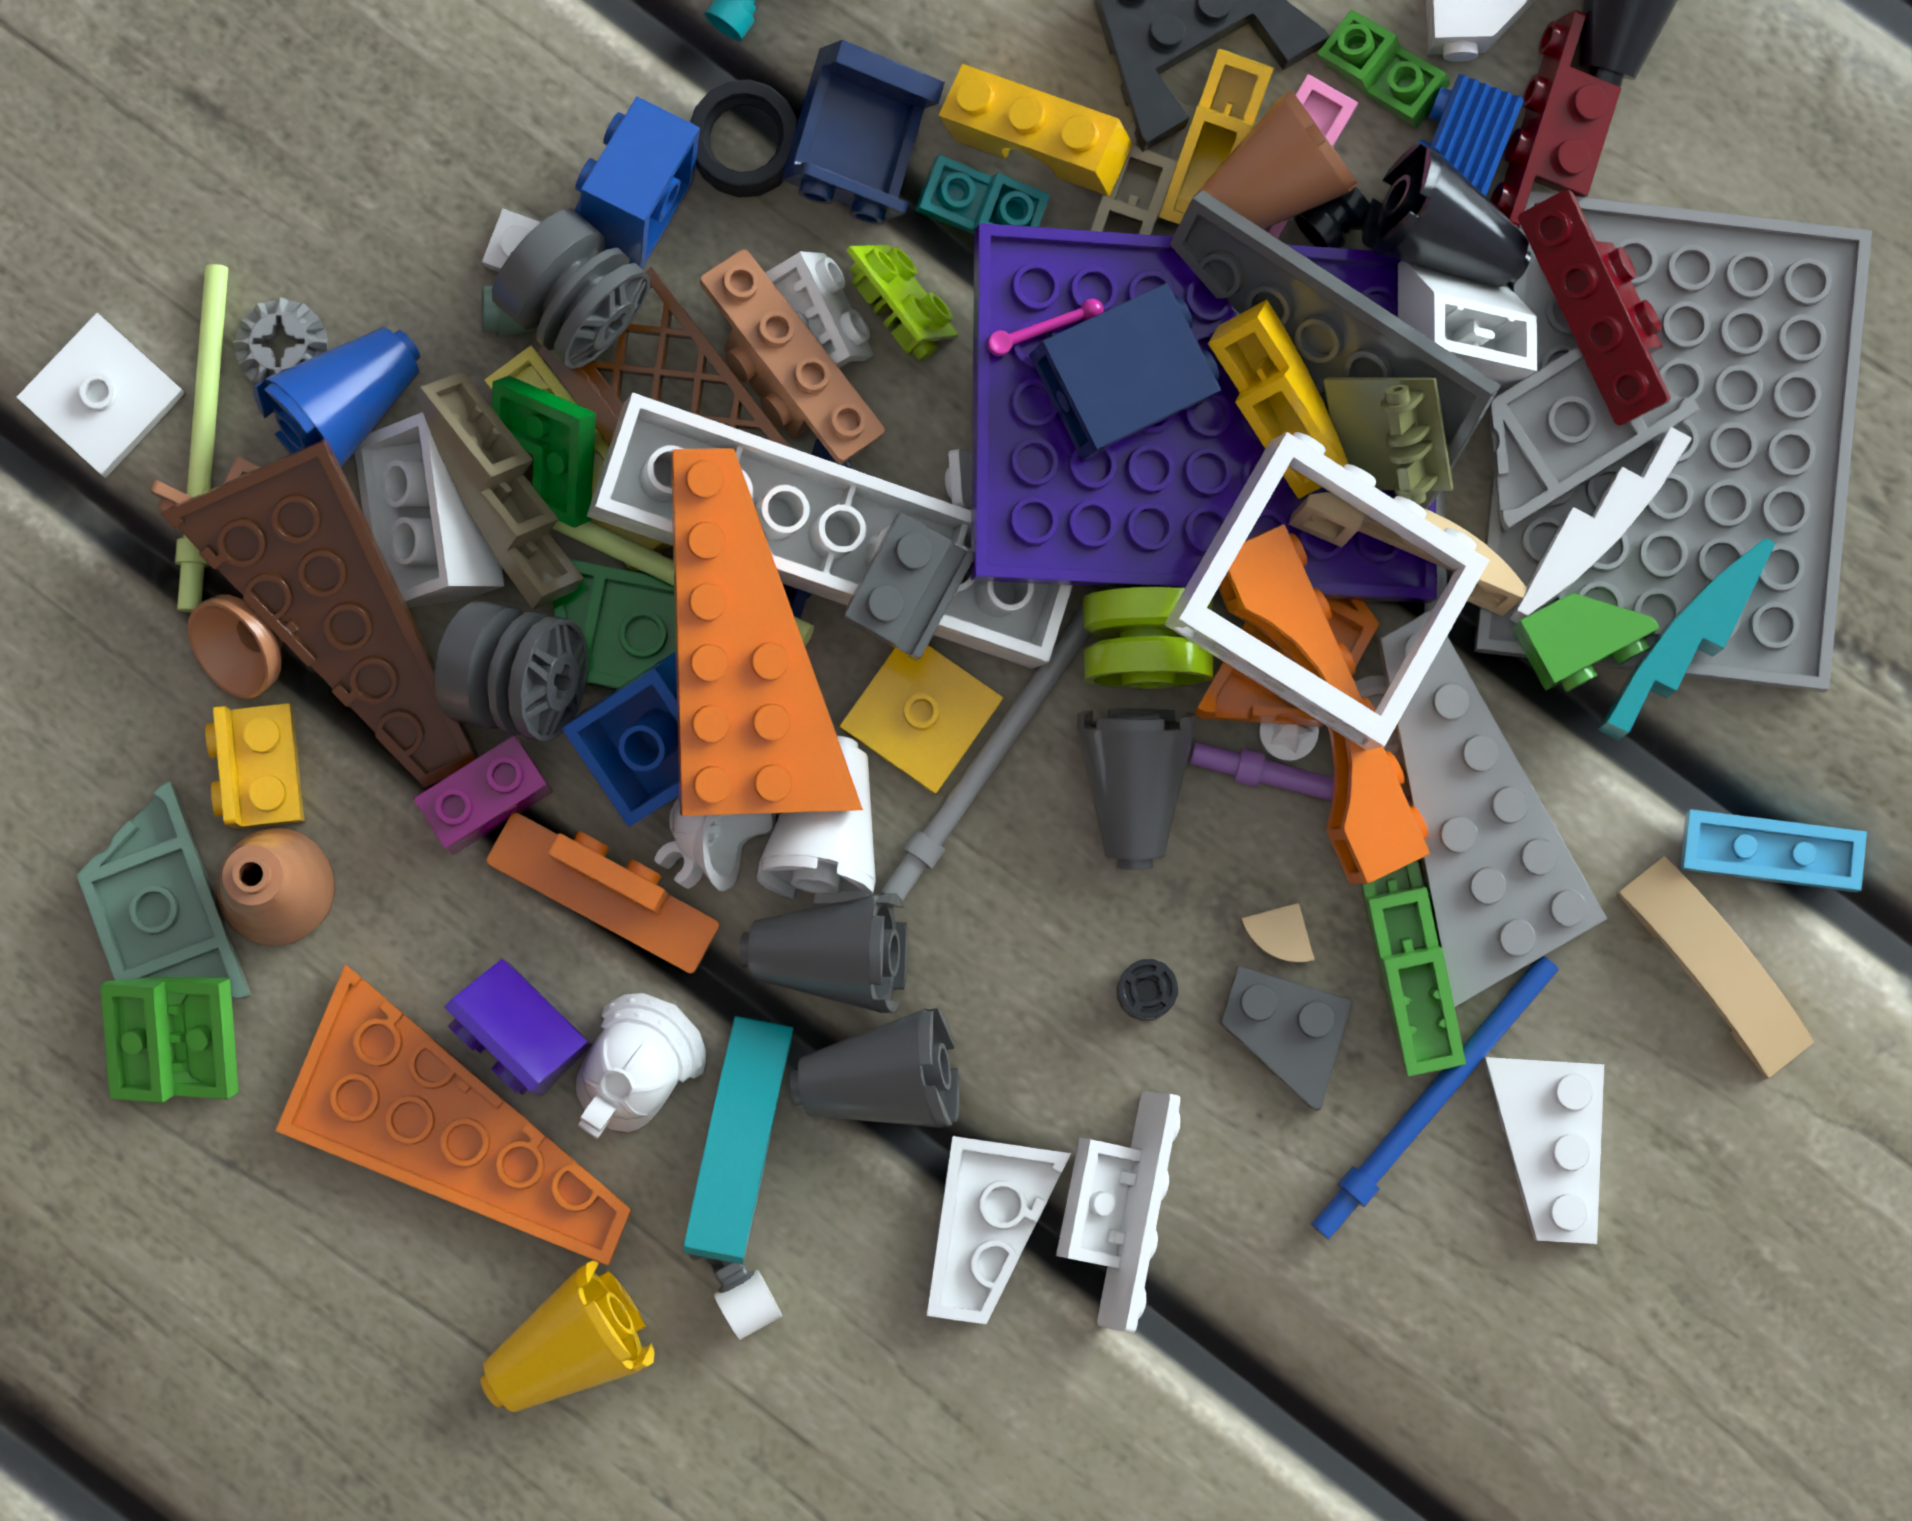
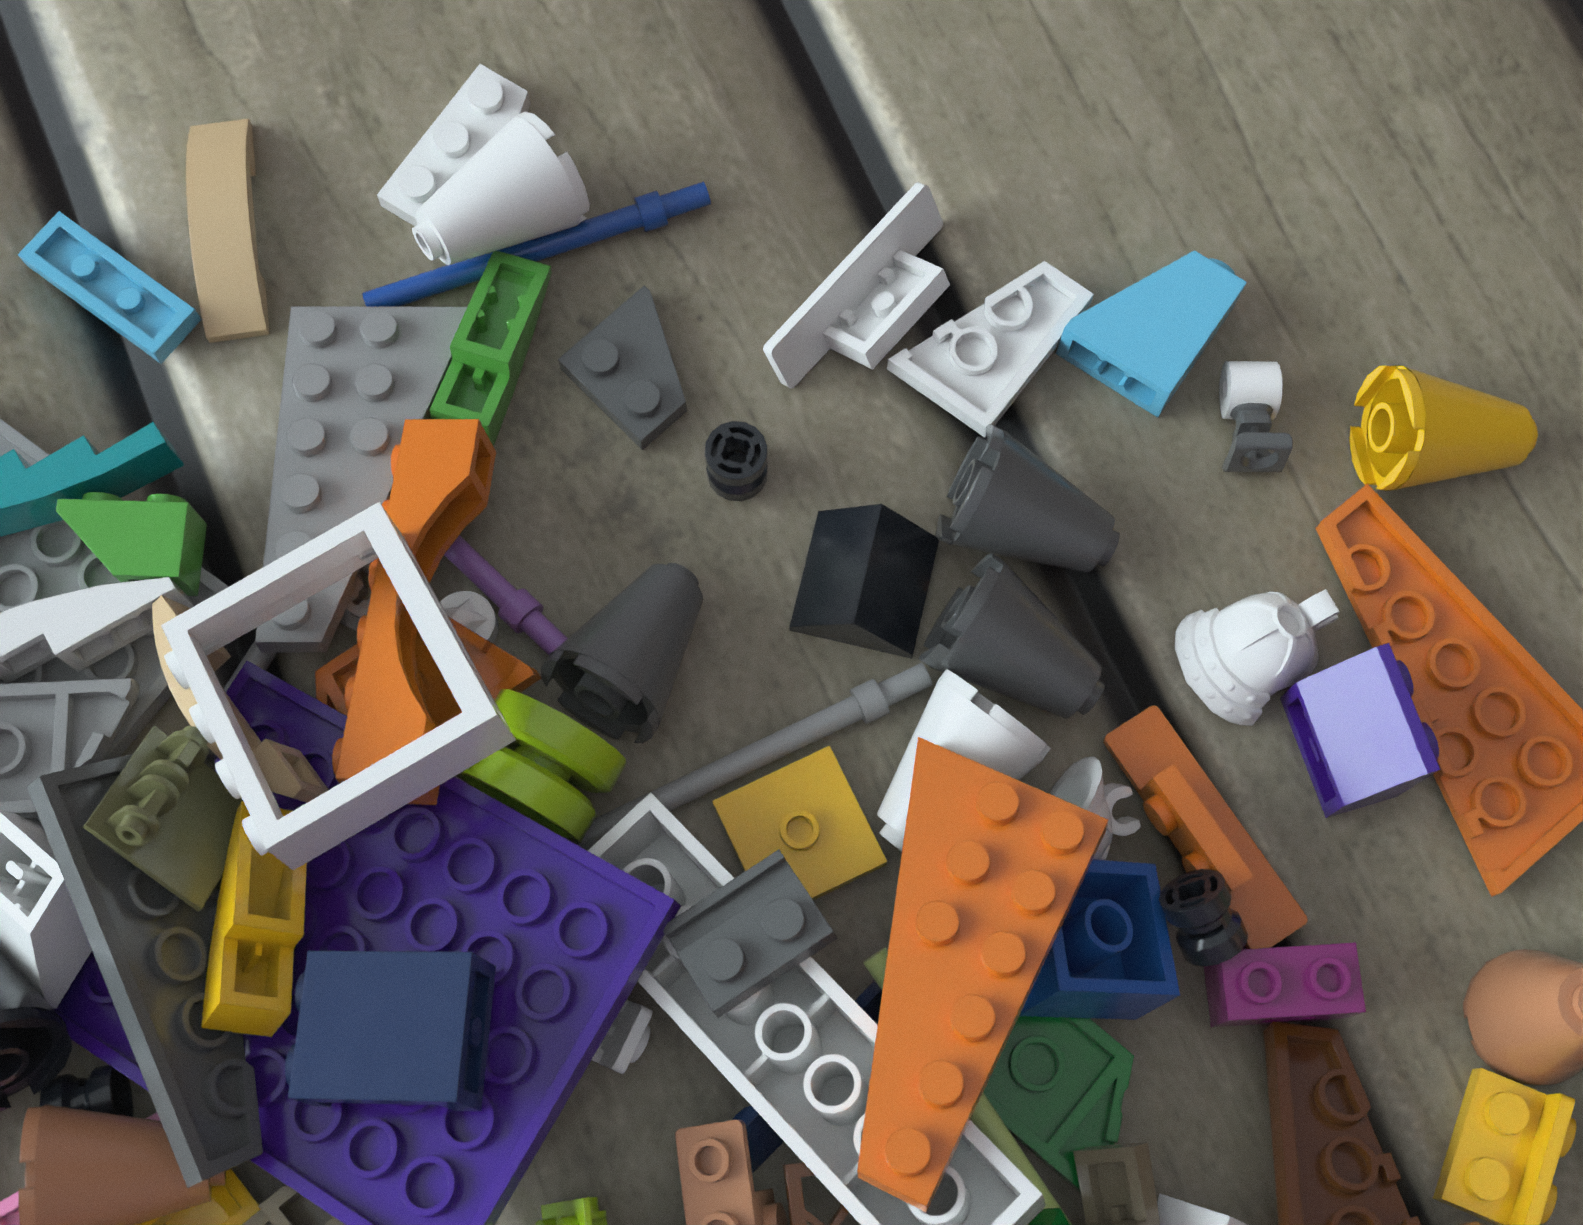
camera: 150 degrees left, 10 degrees down
(511, 670) = (1202, 1089): dark grey wheel -> none
(578, 807) = (1206, 925): none -> black wheel
(738, 1140) = (1192, 521): teal slope -> none
(853, 1314) = (1153, 330): none -> medium azure slope
(983, 949) = (865, 579): none -> black slope
(1001, 342) = (501, 1137): dark pink hinge -> none
(1280, 934) = (585, 452): tan tile -> none
(1483, 1103) = (503, 196): none -> white cone

